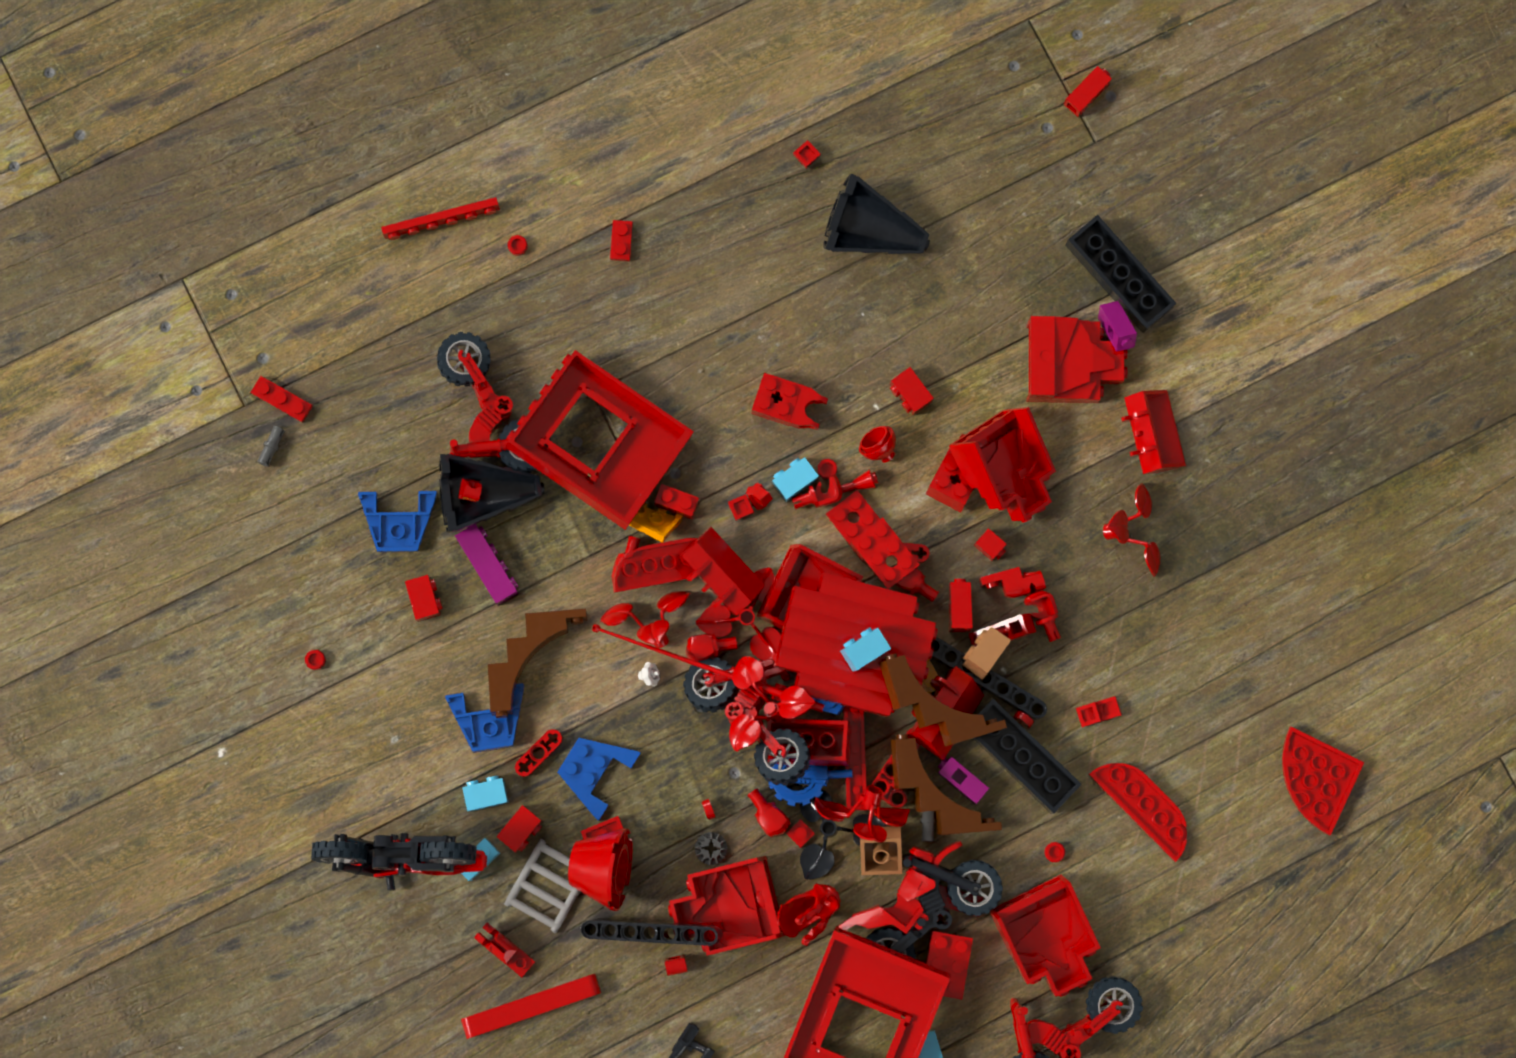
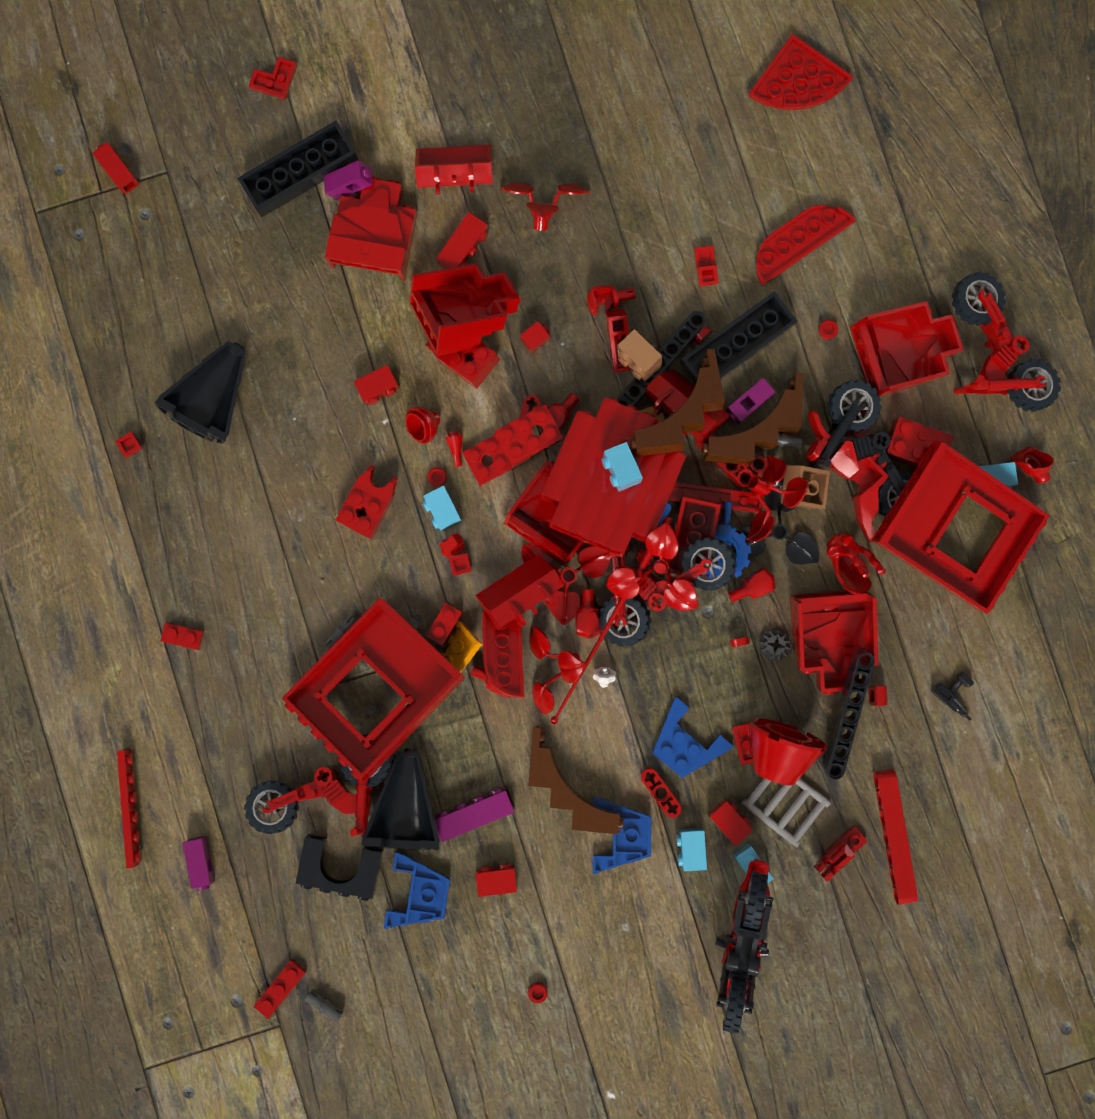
camera: 80 degrees left, 5 degrees up
(396, 297) = (198, 863): none -> magenta brick
(403, 411) = (313, 874): none -> black arch
(470, 490) = (400, 820): red leg -> none
(517, 245) = (168, 737): red tile -> none
(653, 397) = (339, 631): none -> dark grey pin
(800, 833) = (774, 559): red plate -> none
(817, 497) = (465, 488): red piece -> none
(960, 606) = (589, 374): red slope -> none
(1014, 583) = (574, 320): red plate -> none
(1075, 454) = (463, 242): none -> red brick
(1206, 235) = (278, 82): none -> red plate

